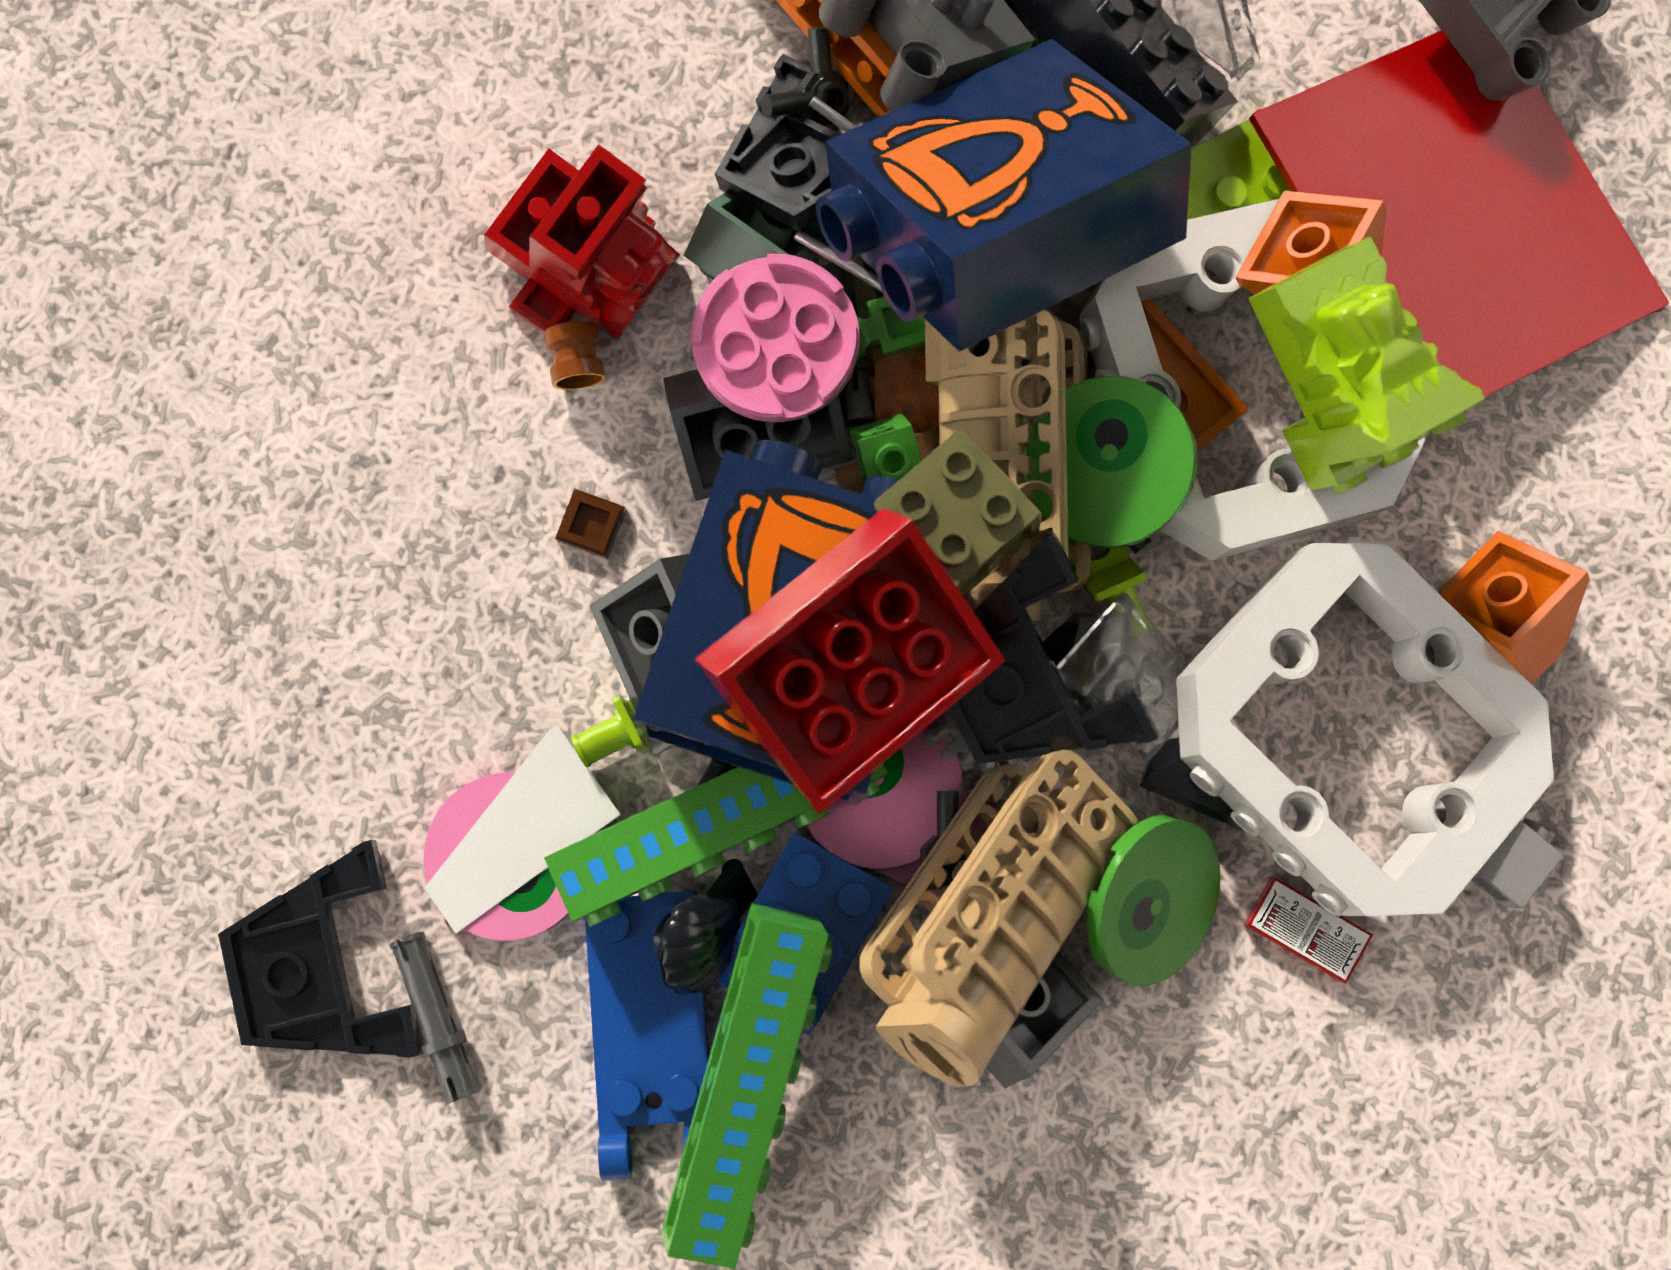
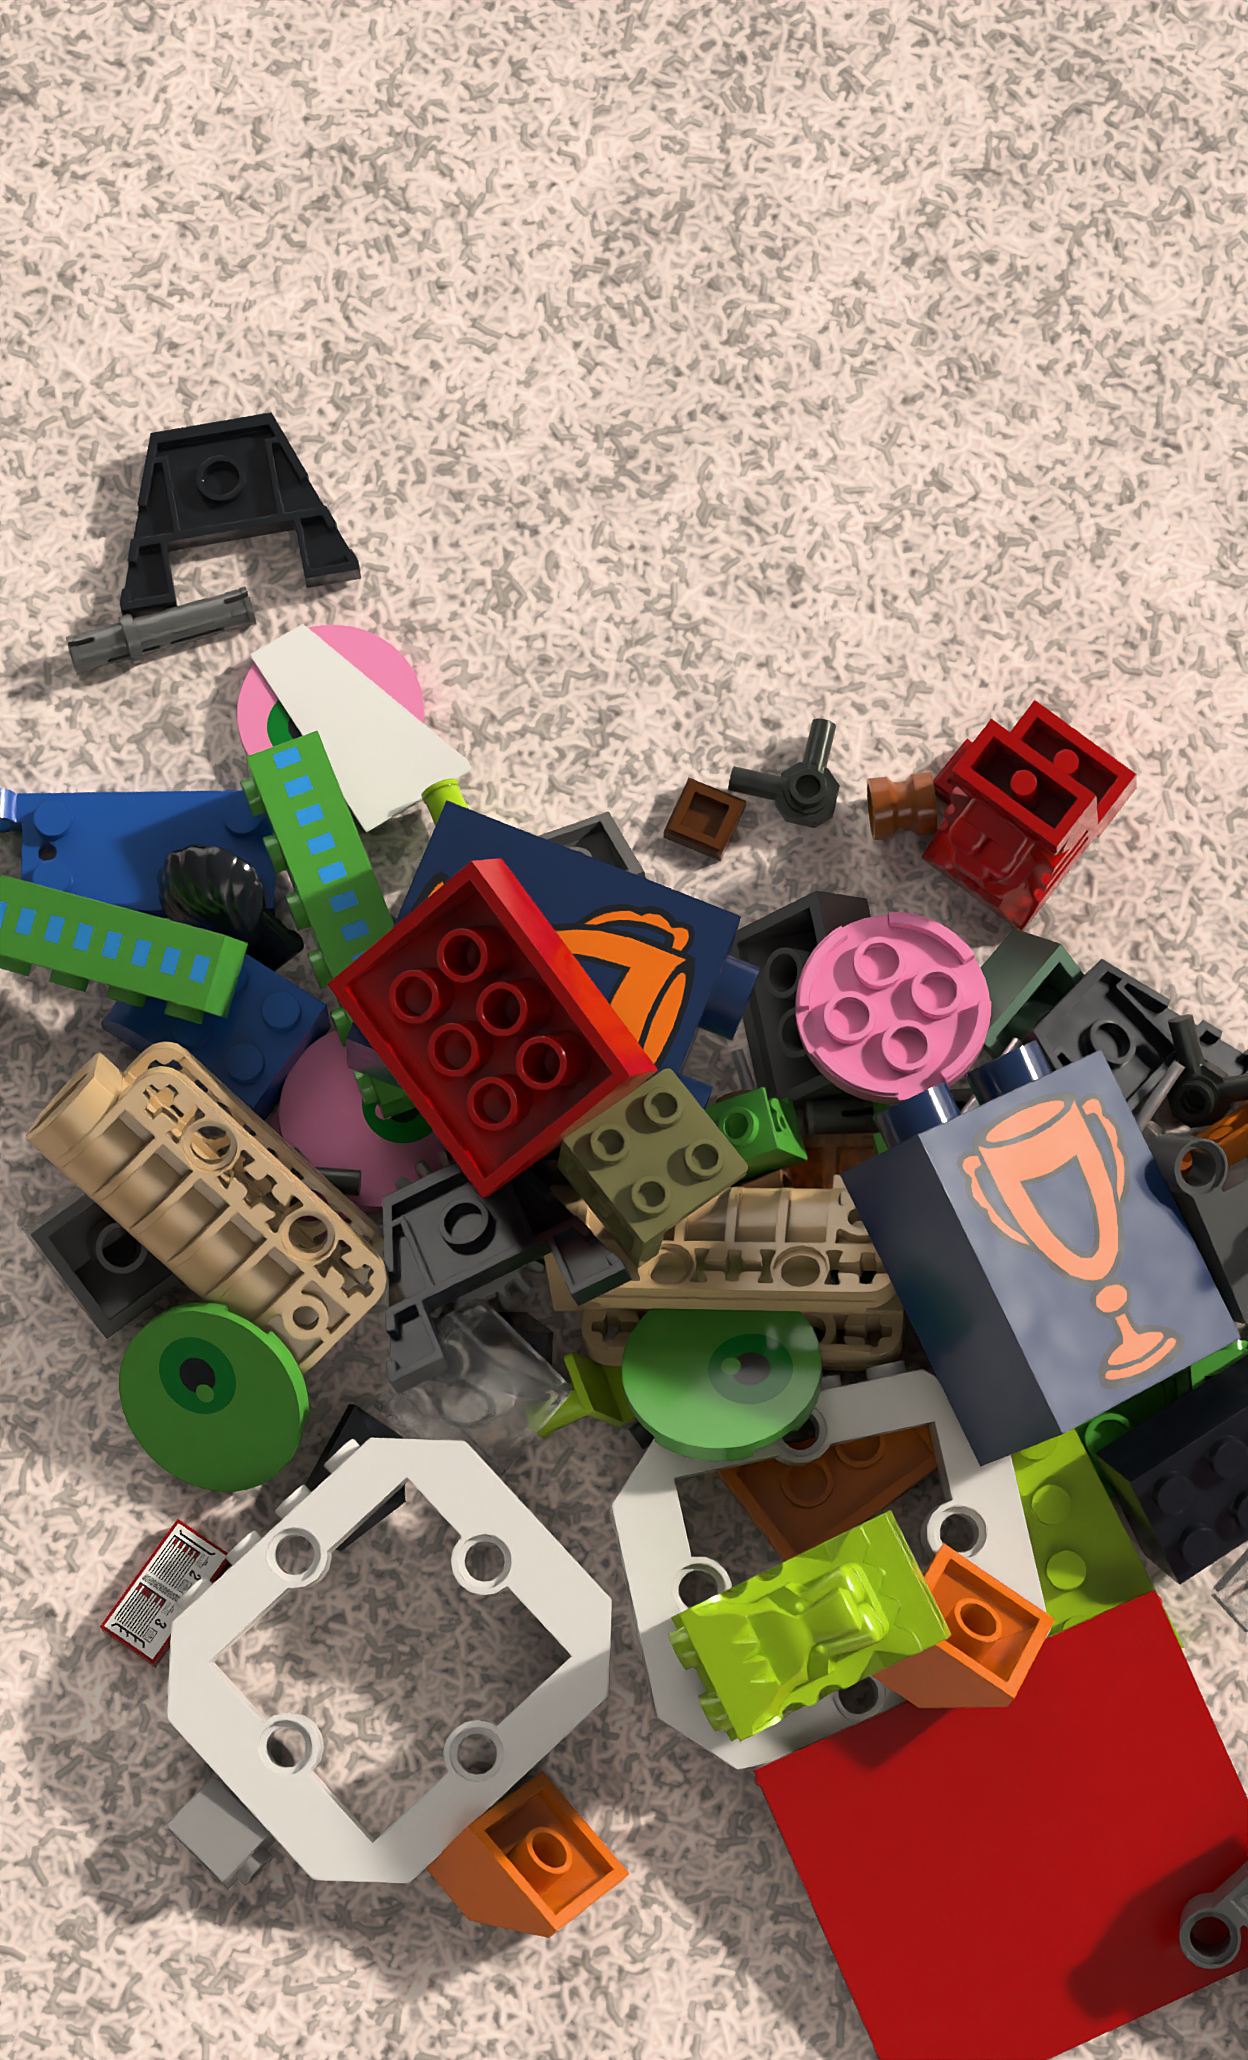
camera: 90 degrees right, 10 degrees down
(564, 437) = (803, 792): none -> pearl dark grey piece

